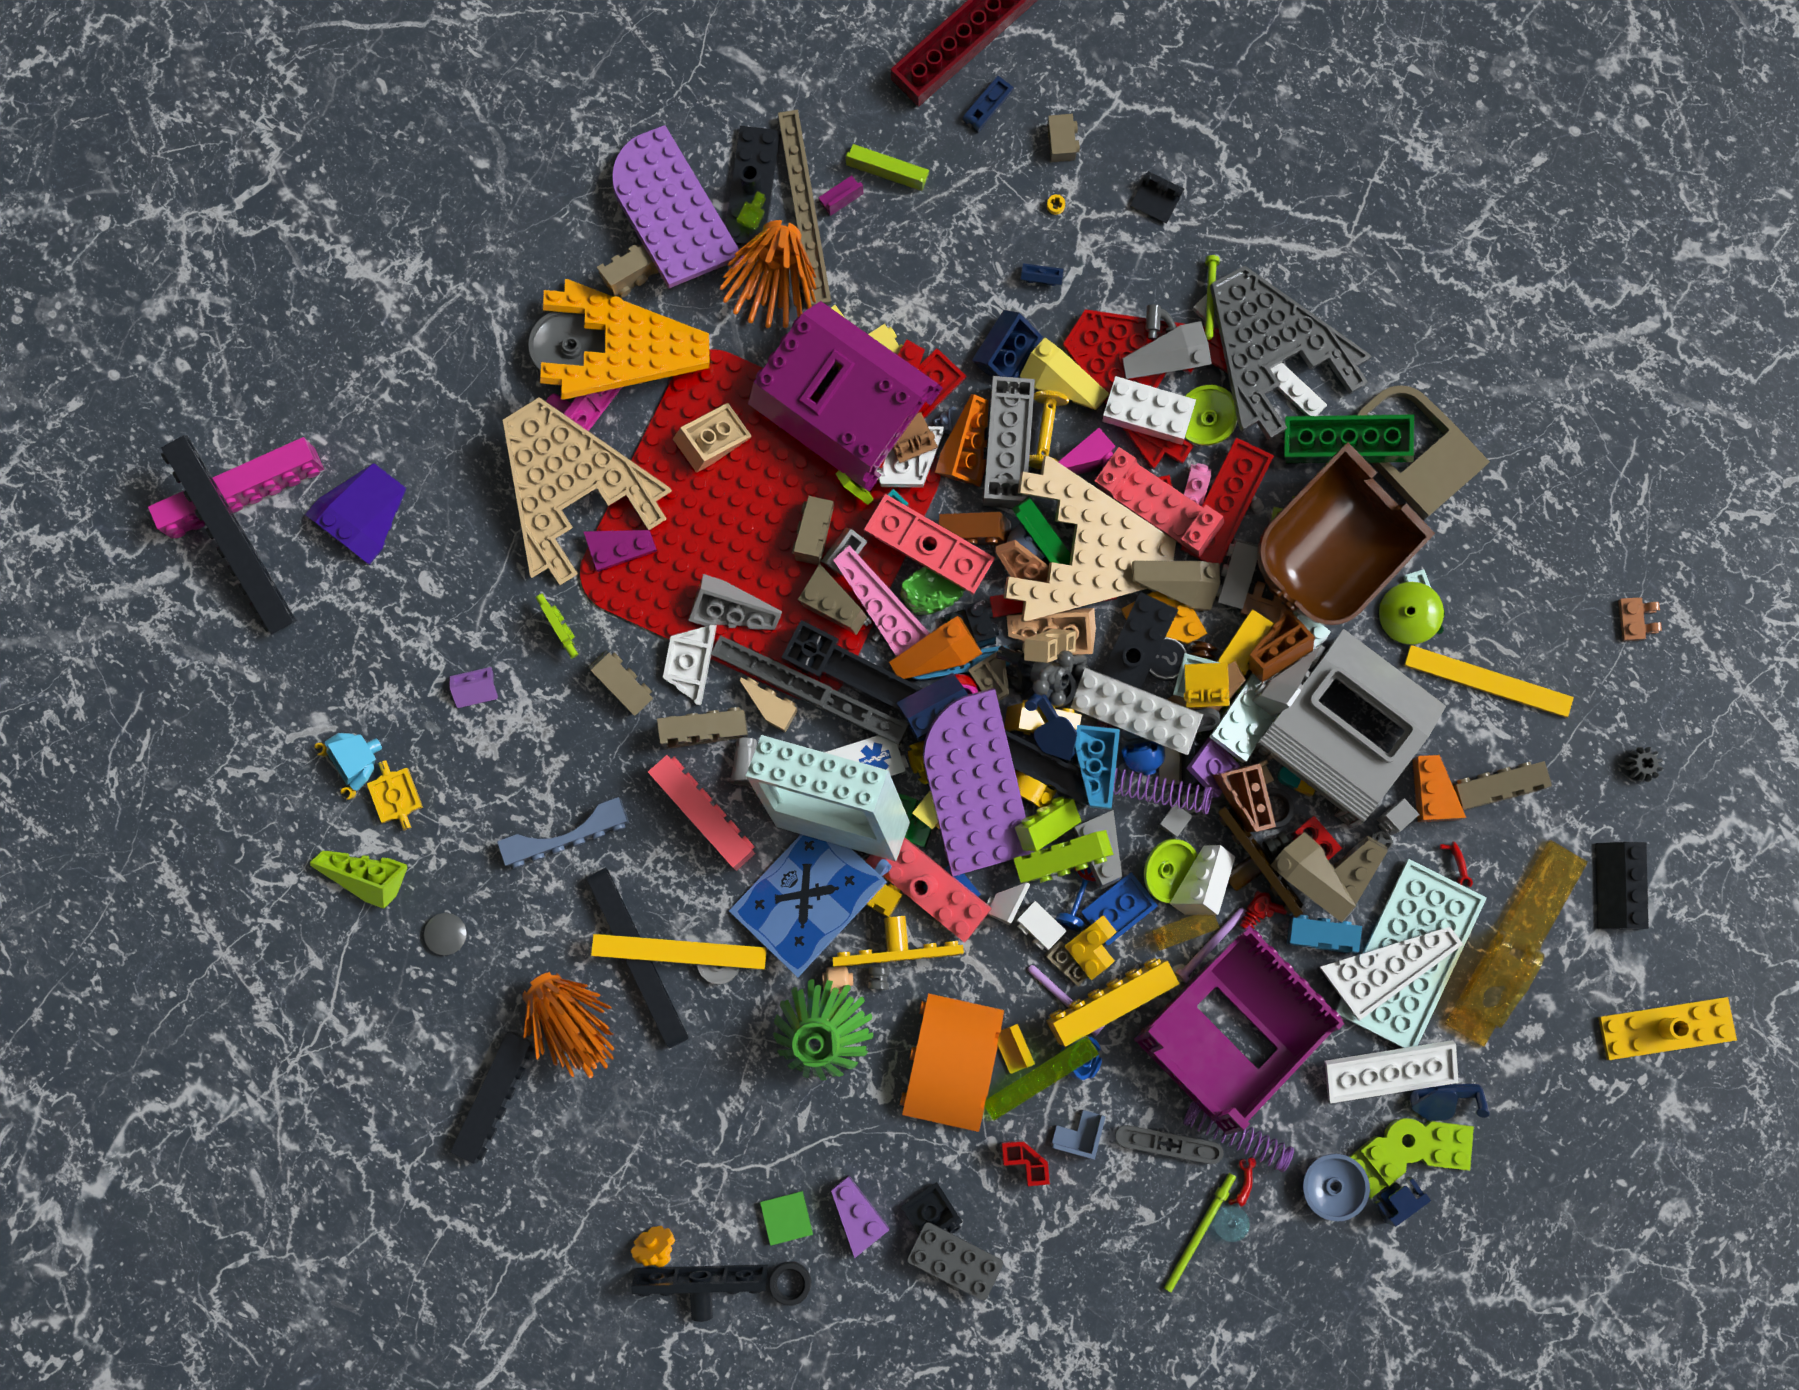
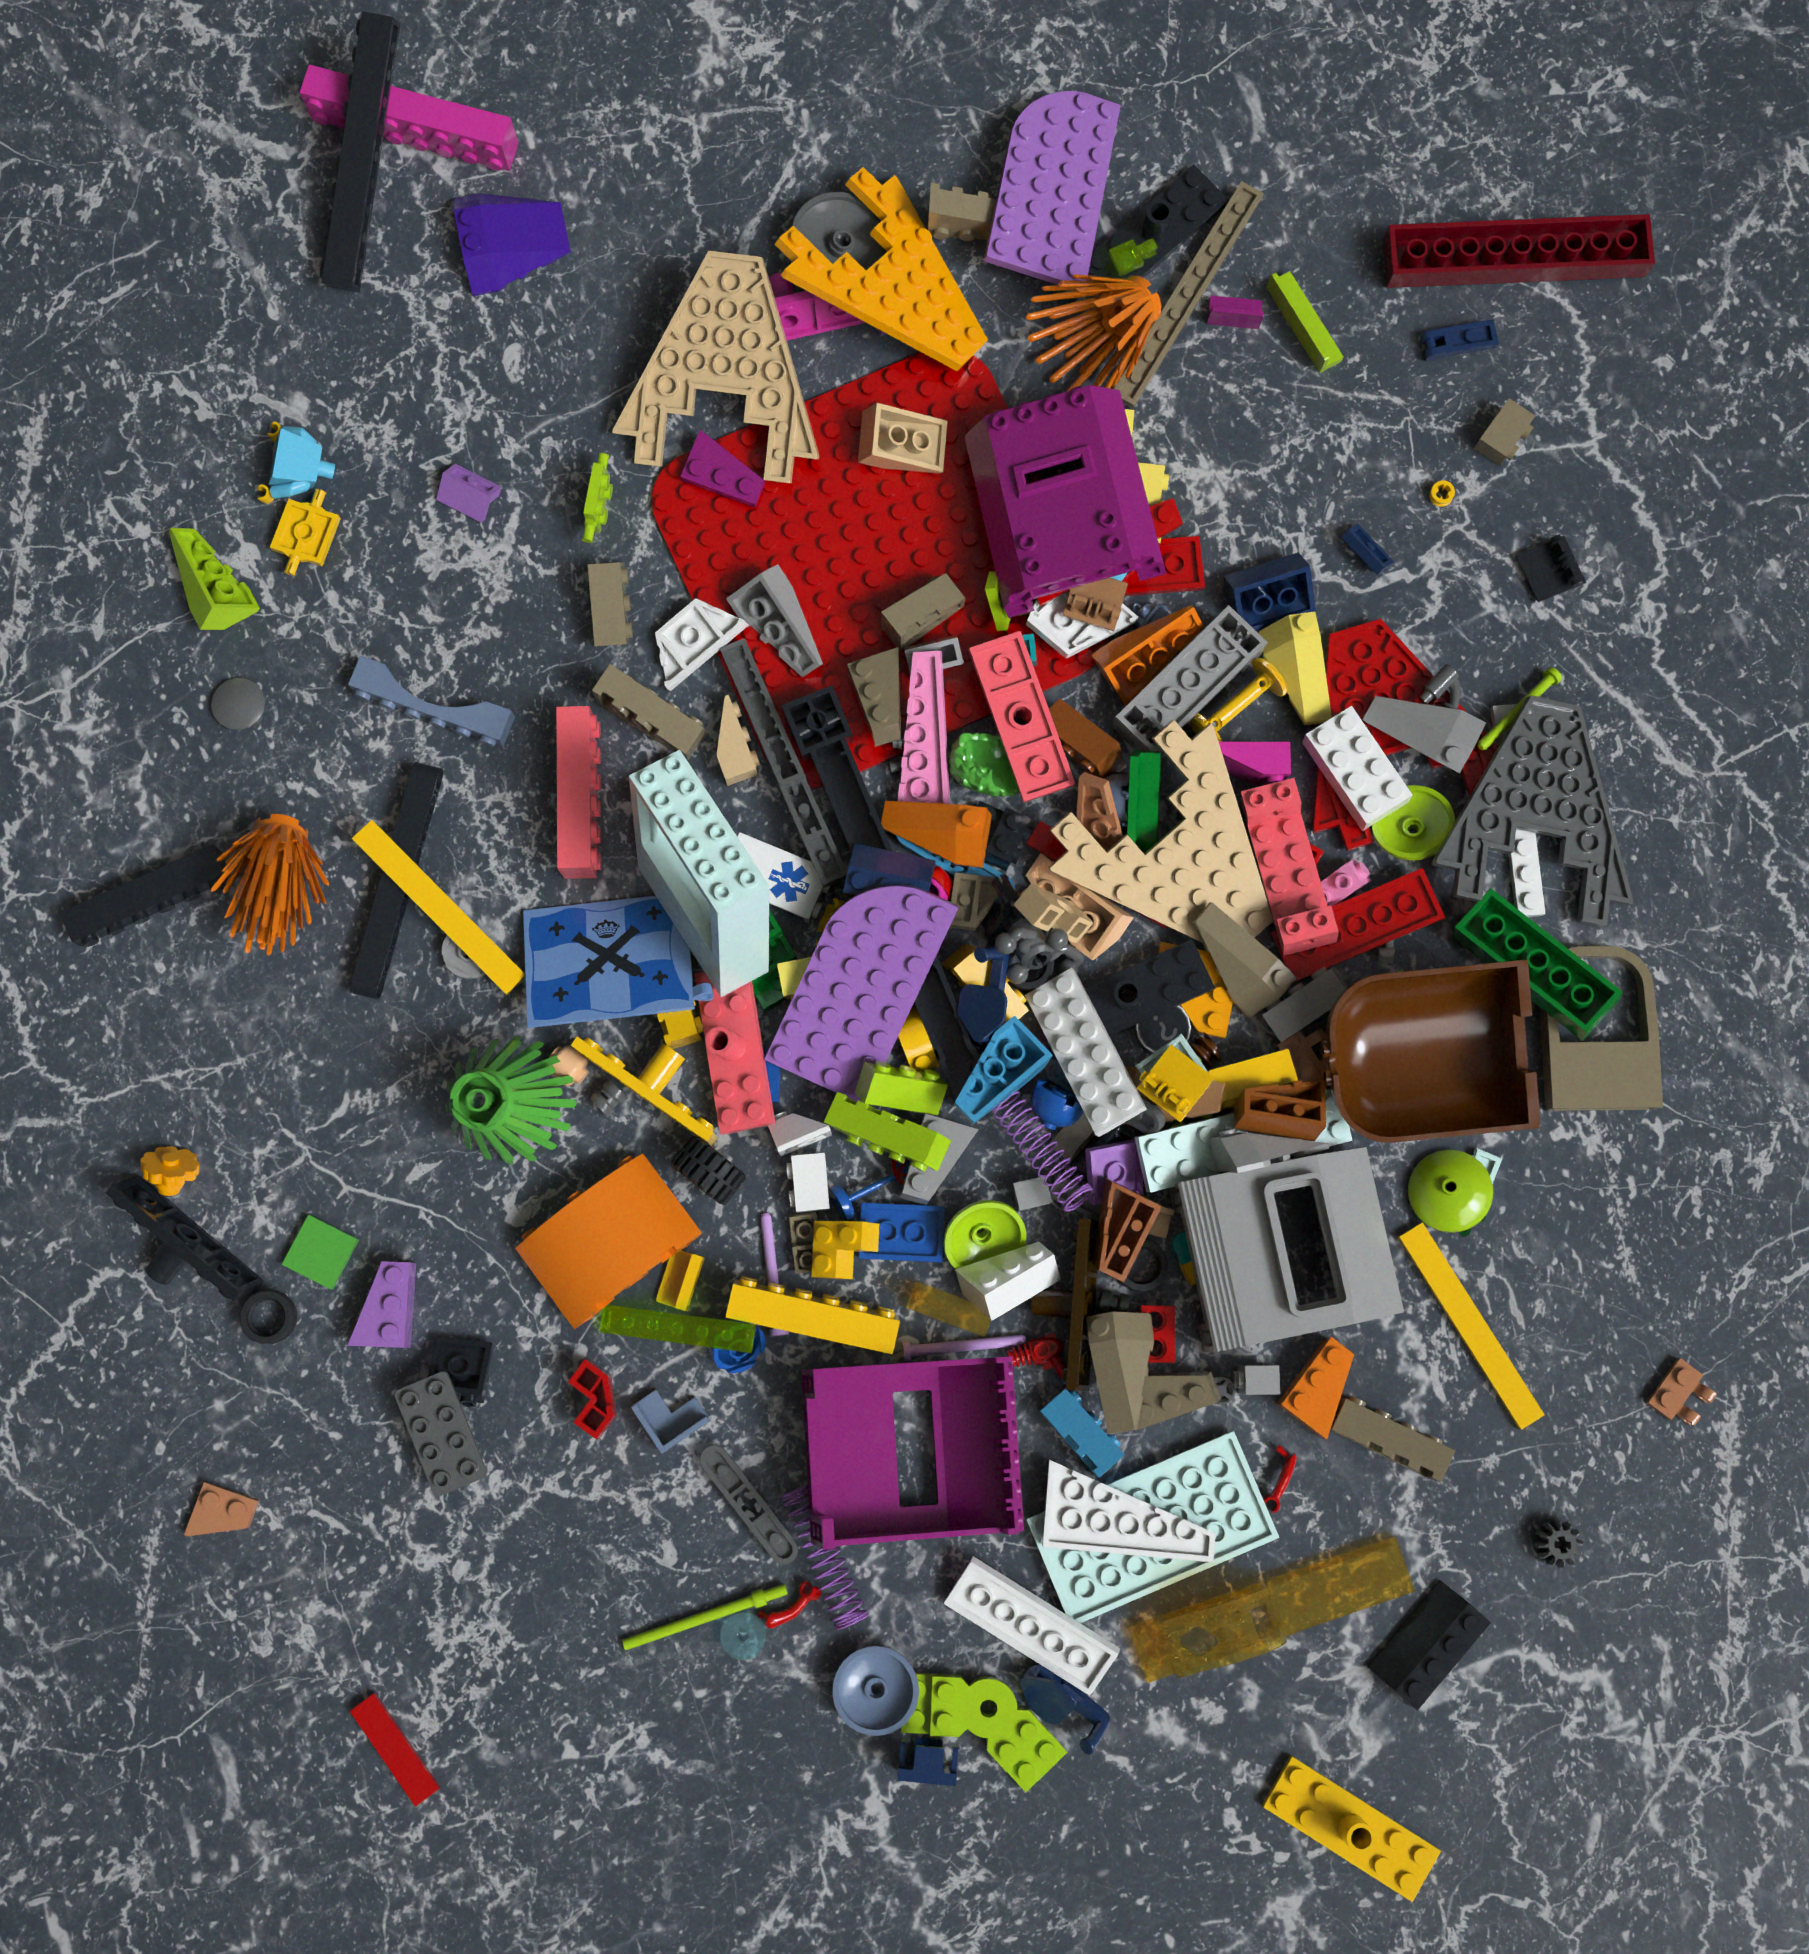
camera: 35 degrees right, 0 degrees up
(977, 969) = (708, 1170): none -> black tyre

